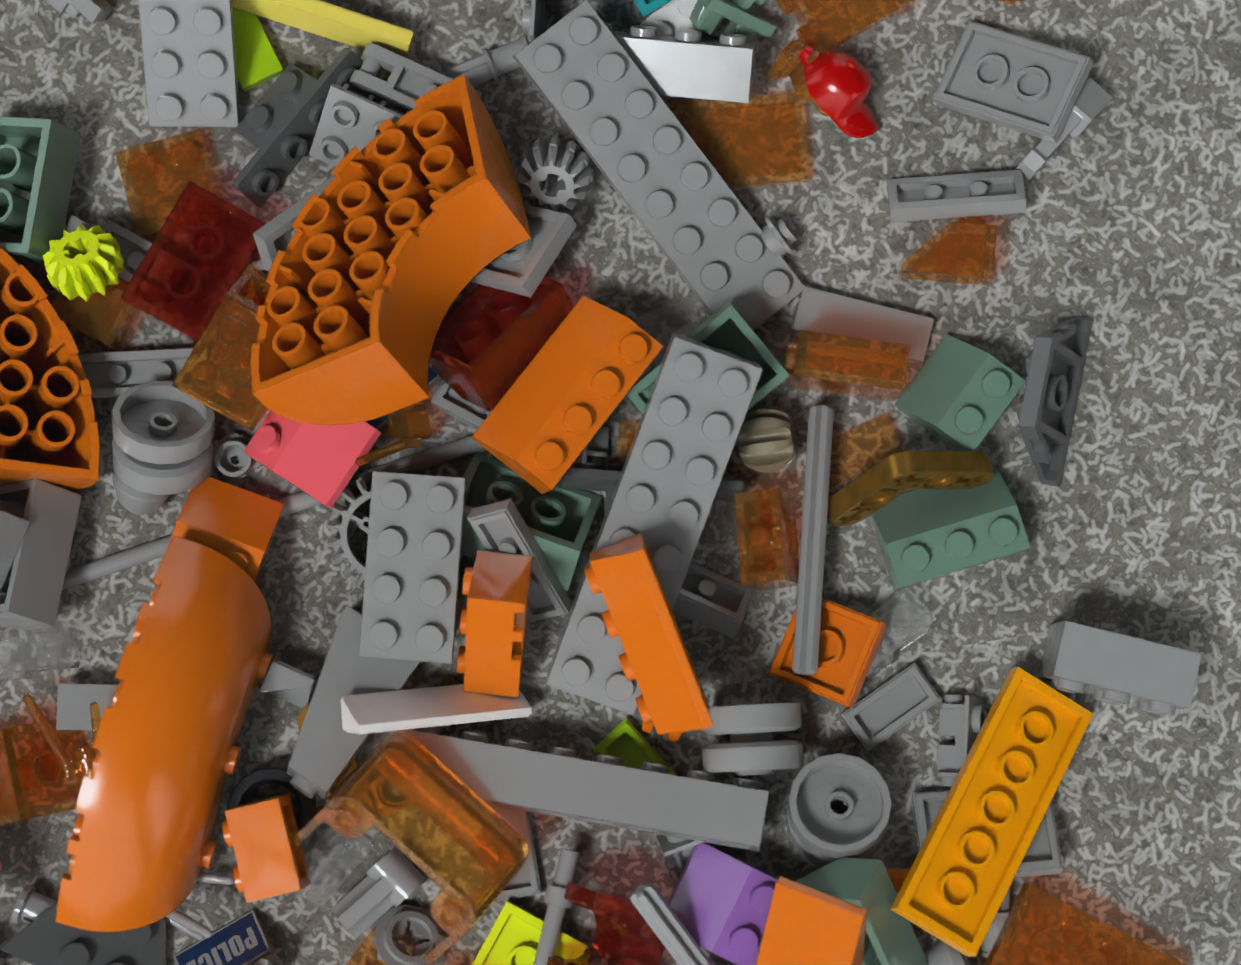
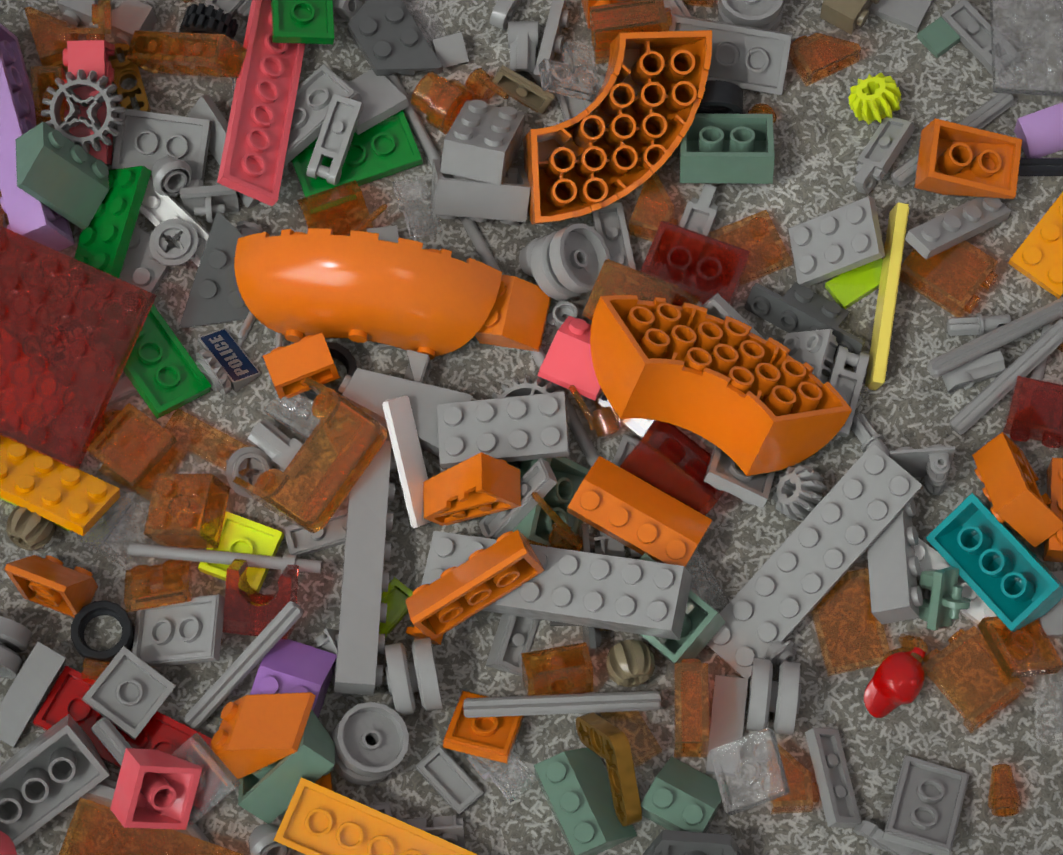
camera: 90 degrees right, 15 degrees down
(83, 262) = (682, 194): neon yellow gear -> none
(582, 508) = (561, 535): none -> clear orange plant
(843, 253) = (774, 696): none -> light grey wheel
(943, 300) = (749, 771): none -> clear plate

